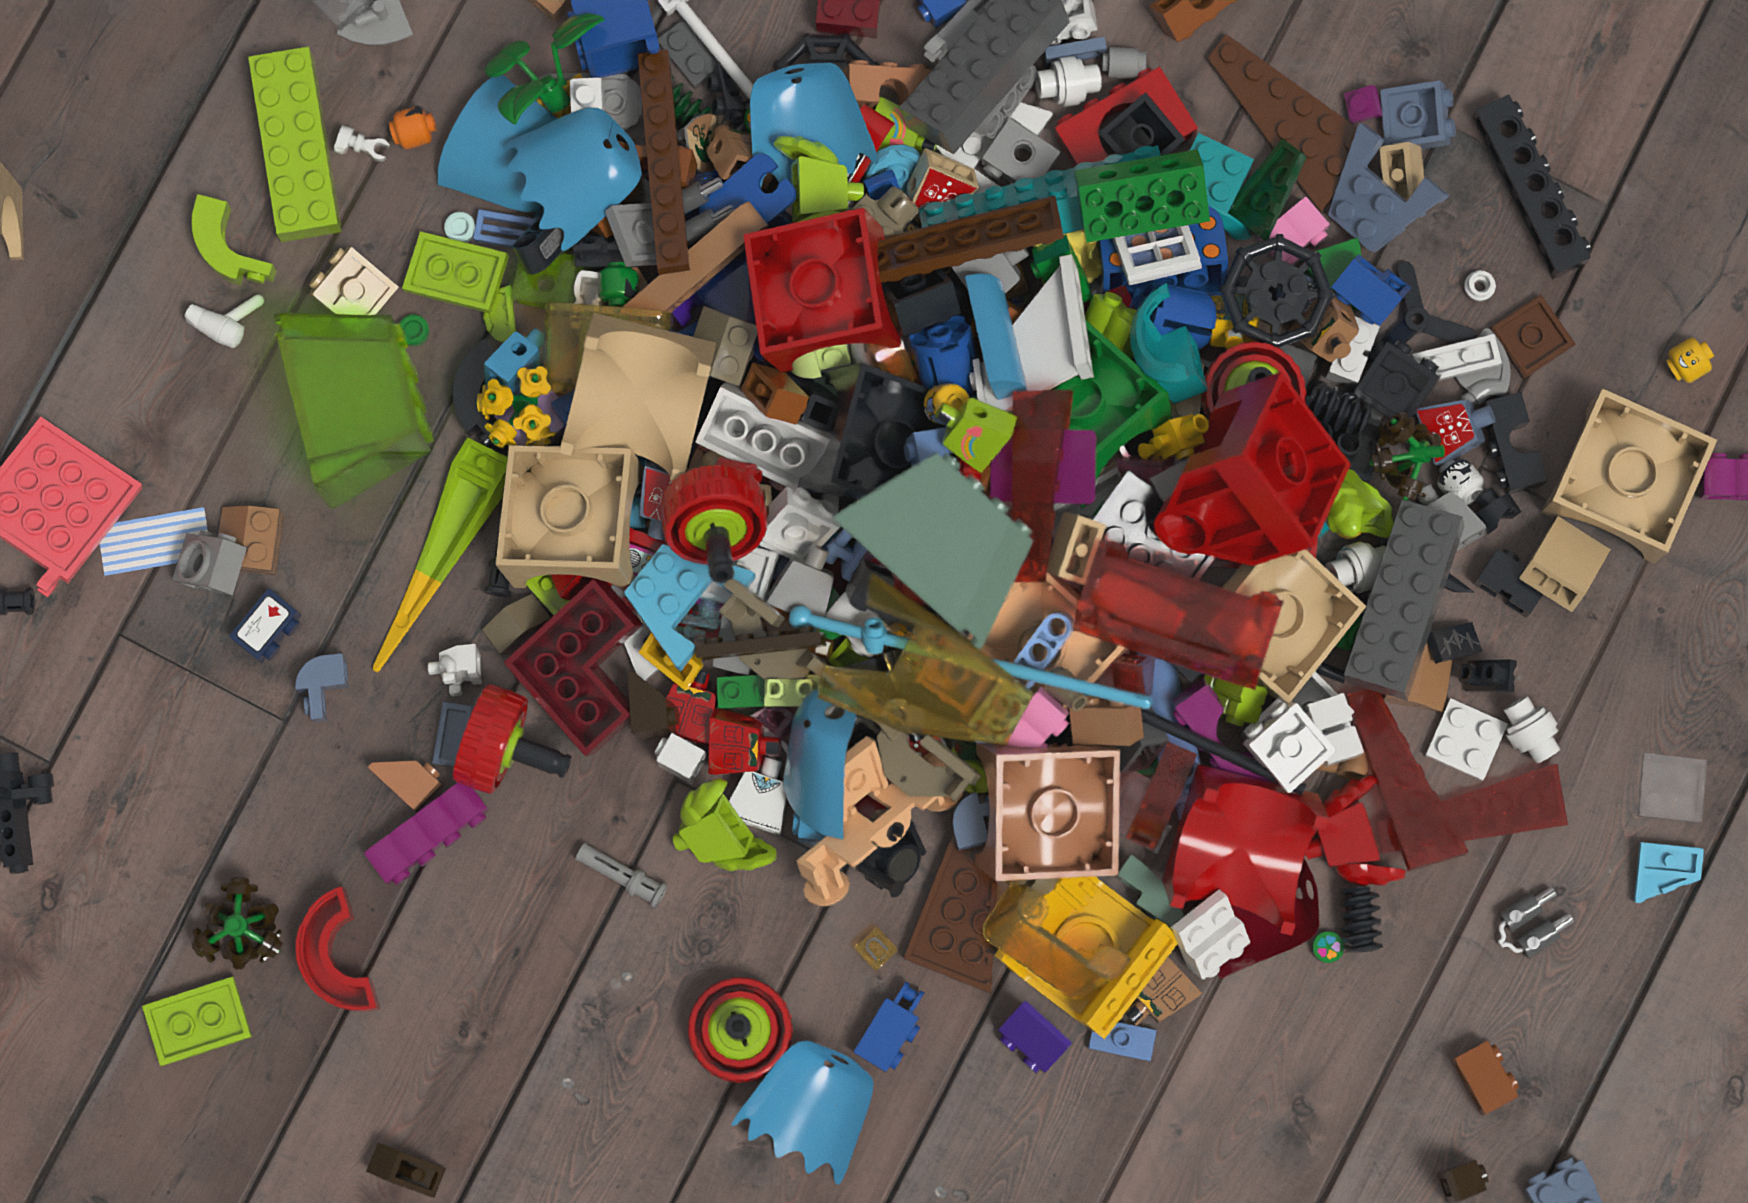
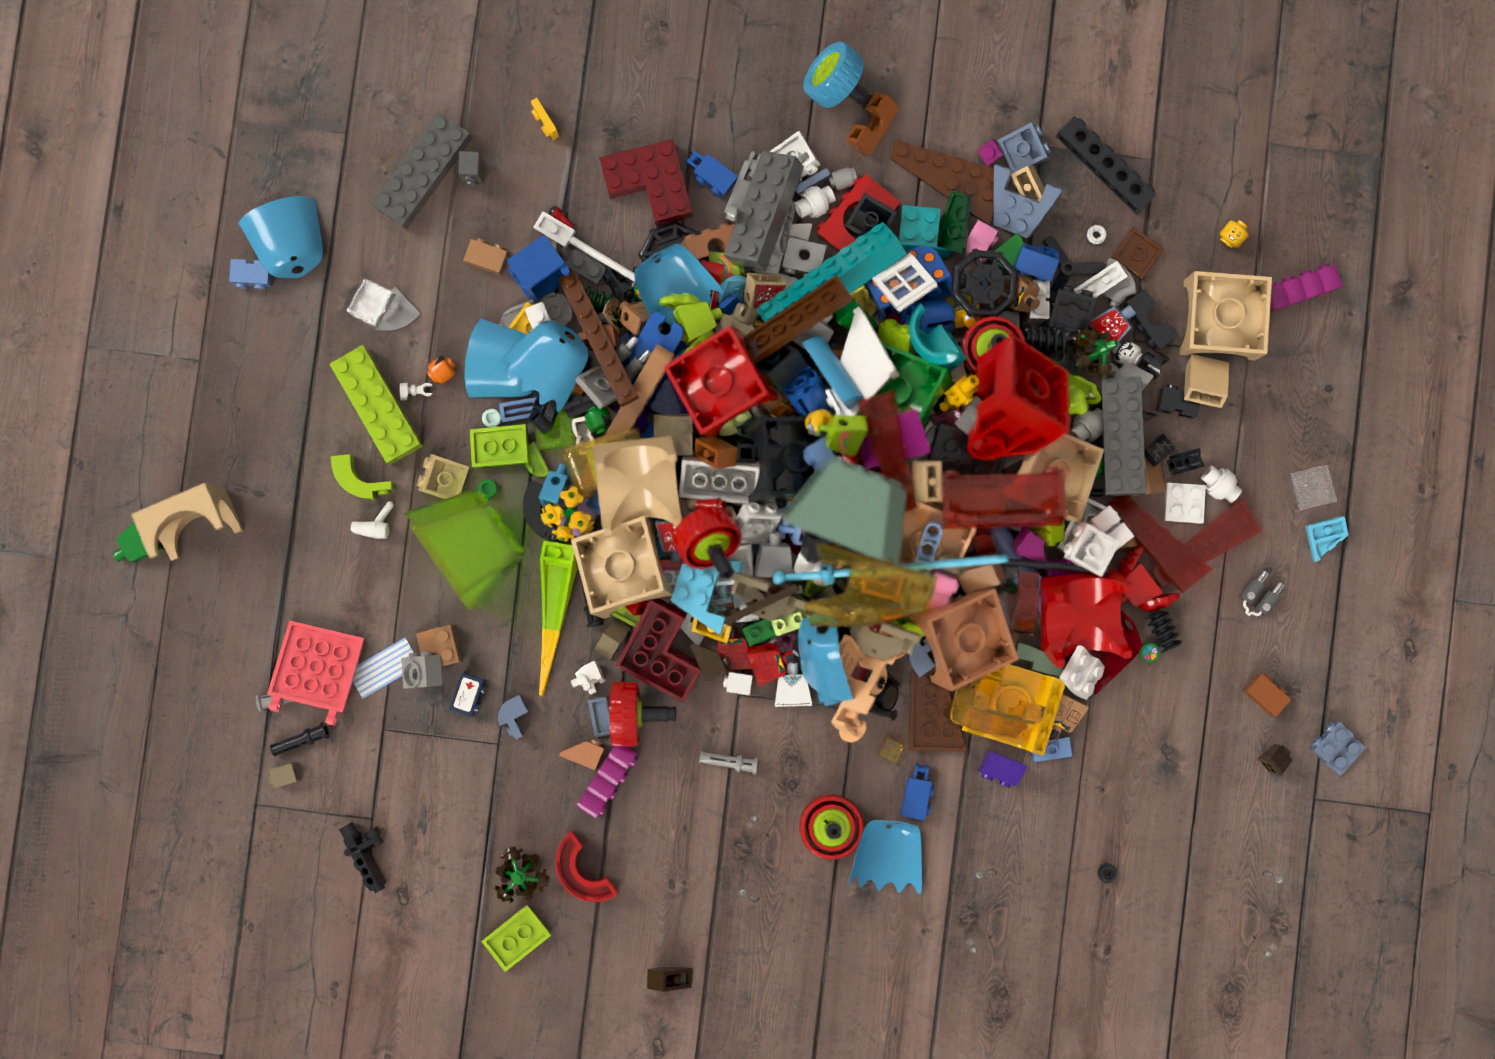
camera: 20 degrees left, 5 degrees up
(549, 89) = (513, 318): green plant -> none
(717, 831) = (777, 718): lime torso -> none
(1142, 195) = (888, 256): green brick -> none

